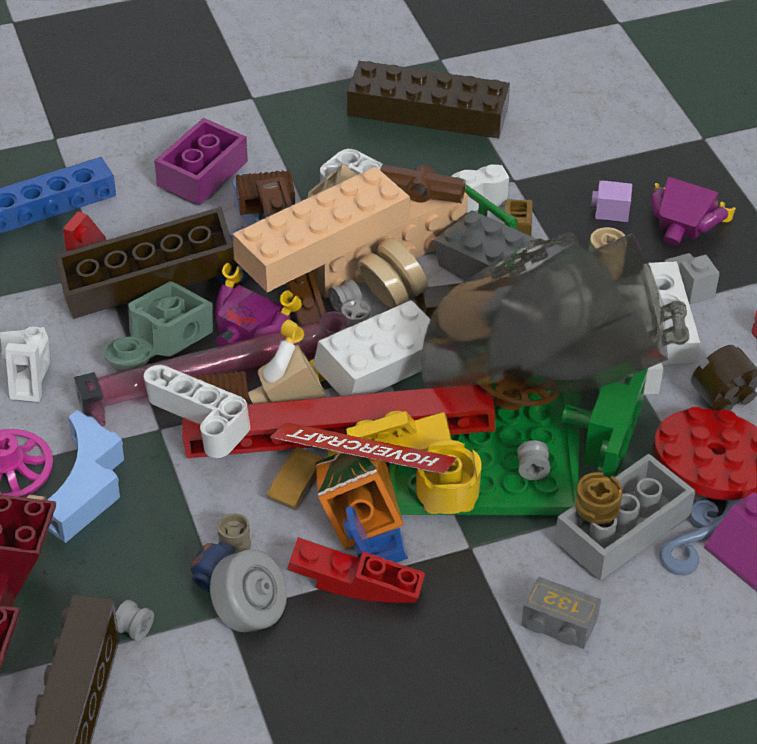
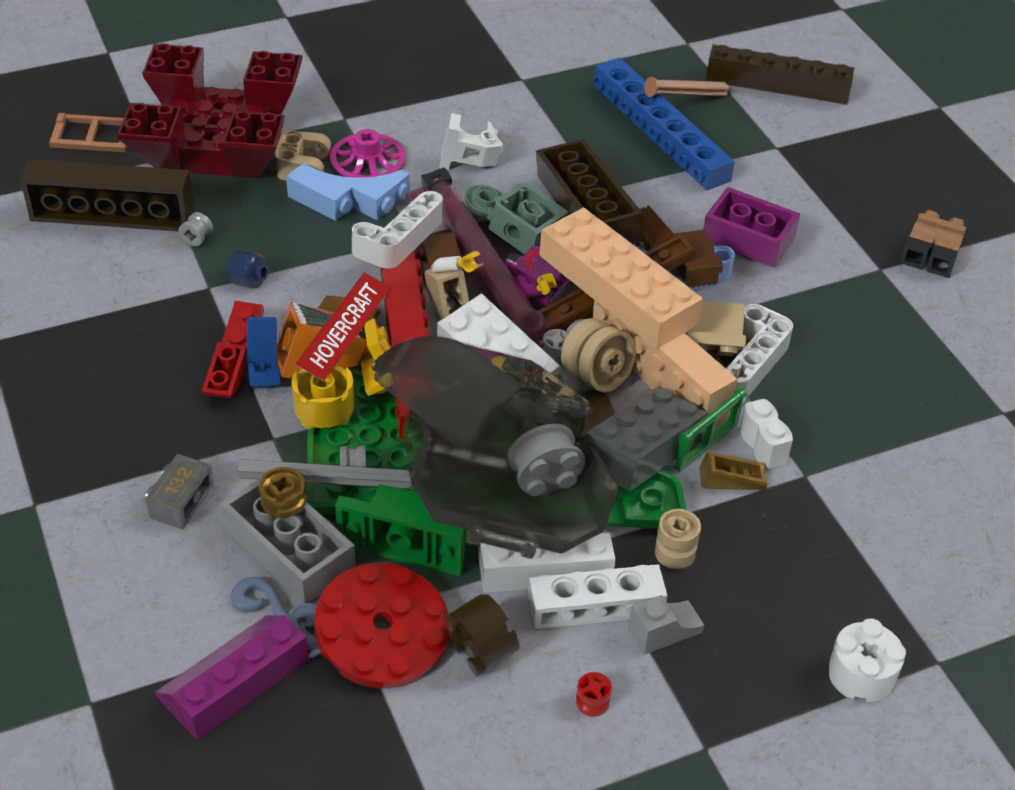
camera: 85 degrees right, 0 degrees up
(81, 232) = (620, 159): red wing -> none
(231, 54) = (936, 235): none -> hips
(234, 531) = (280, 278): dark tan wheel -> none
(248, 591) = (213, 285): light grey wheel -> none
(425, 183) = (706, 349): reddish brown piece -> none
(428, 99) = (909, 395): dark brown brick -> none
(561, 472) = (329, 473): none -> light grey axle
(612, 201) = (777, 553): lavender brick -> none
(687, 210) = (770, 619): magenta torso -> none
(721, 165) = (866, 661): none -> white brick

